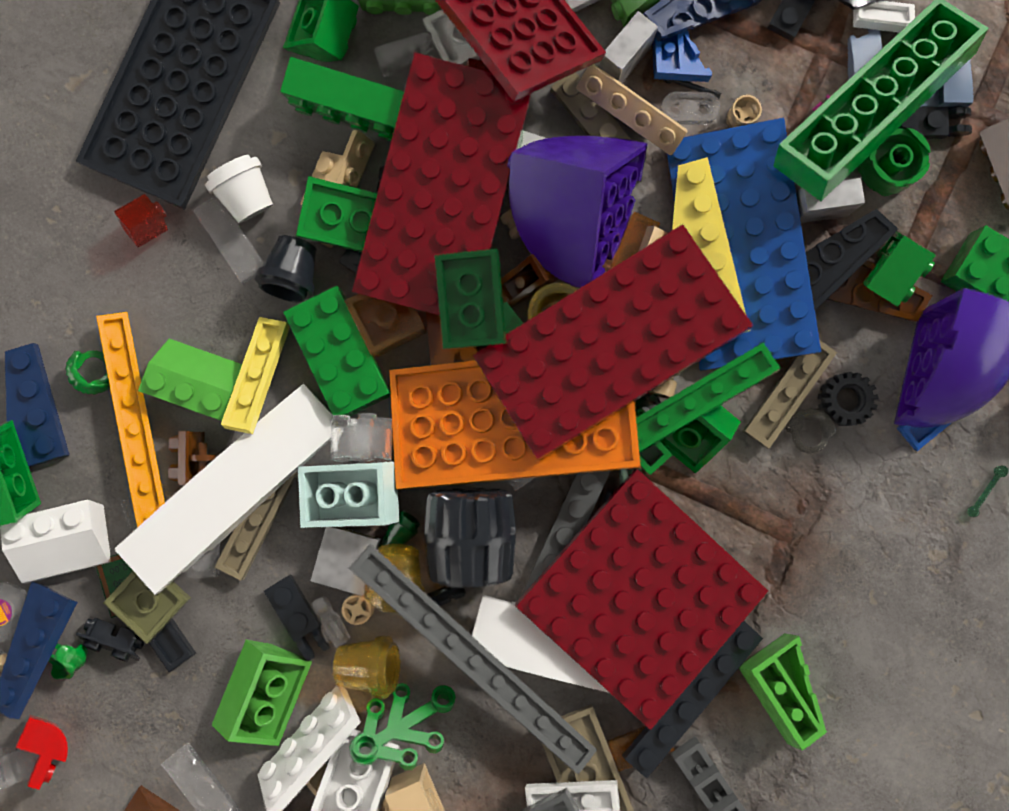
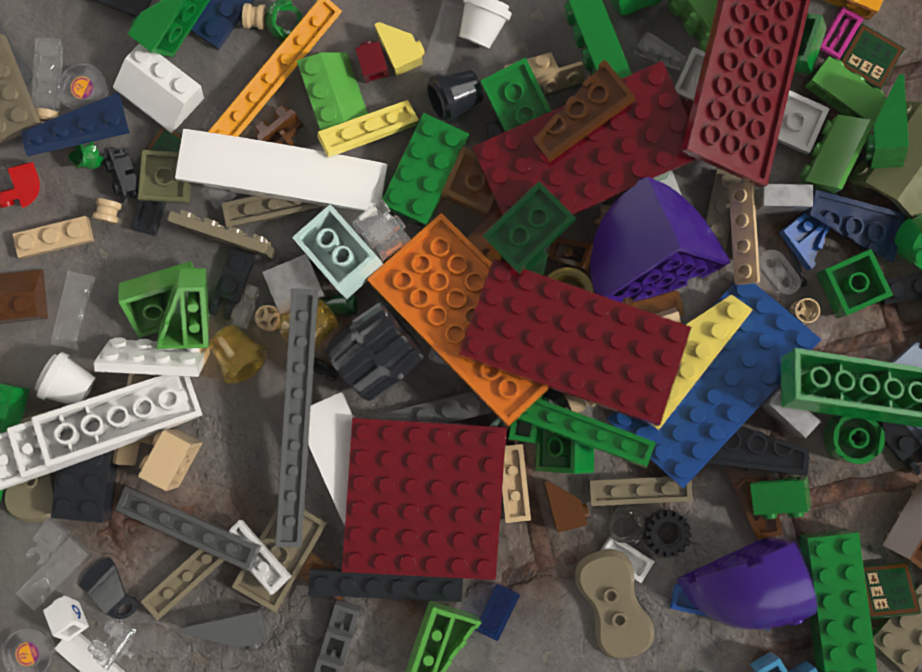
camera: 45 degrees right, 0 degrees up
(64, 397) = (254, 16): none -> tan wheel
(118, 752) = (53, 237): none -> tan plate
(134, 681) = (106, 211): none -> tan wheel
(196, 321) = (372, 61): none -> dark red brick
(205, 285) = (400, 48): none -> light yellow slope
(237, 594) = (214, 231): none -> dark tan plate
(291, 683) = (186, 314): none -> bright green wedge
(400, 729) = (213, 407): green plant -> none
(404, 147) = (594, 104): none -> reddish brown wing
(696, 503) = (515, 485): none -> tan plate
(752, 473) = (565, 508): none -> reddish brown slope
(755, 48) = (854, 284): none -> green brick
(798, 611) = (497, 611): none -> clear blue plate
(841, 455) = (639, 561): none -> white tile
(854, 491) = (608, 586): none -> dark tan plate

